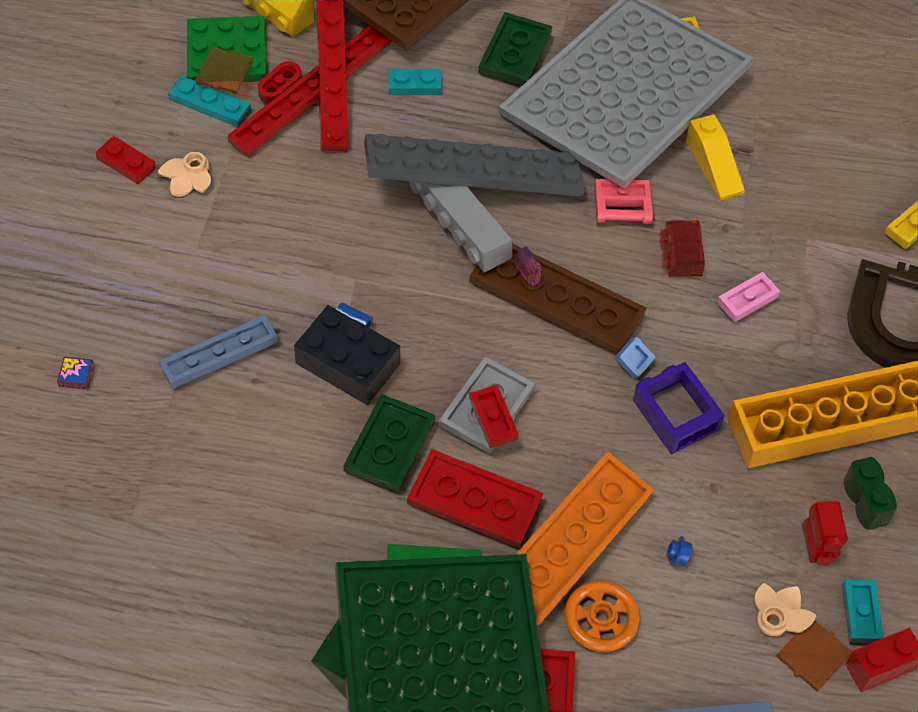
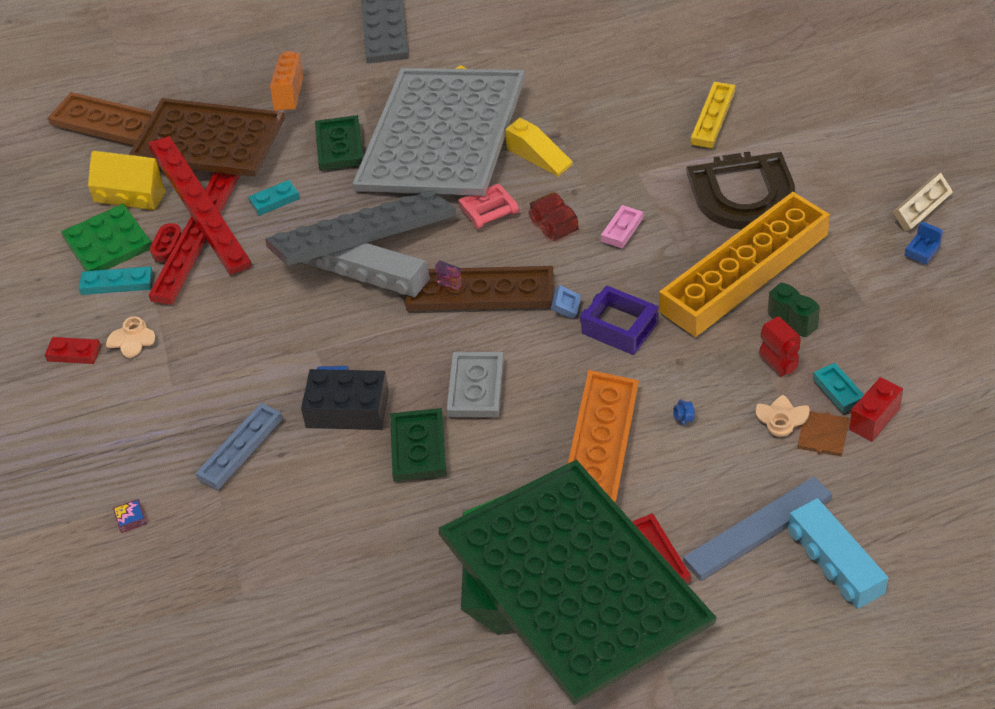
camera: 20 degrees left, 10 degrees down
(224, 70) = (116, 252): clear orange piece -> none
(475, 498) = (508, 450): red plate -> none
(493, 416) = (488, 385): red plate -> none
(591, 639) = (658, 500): orange plate -> none

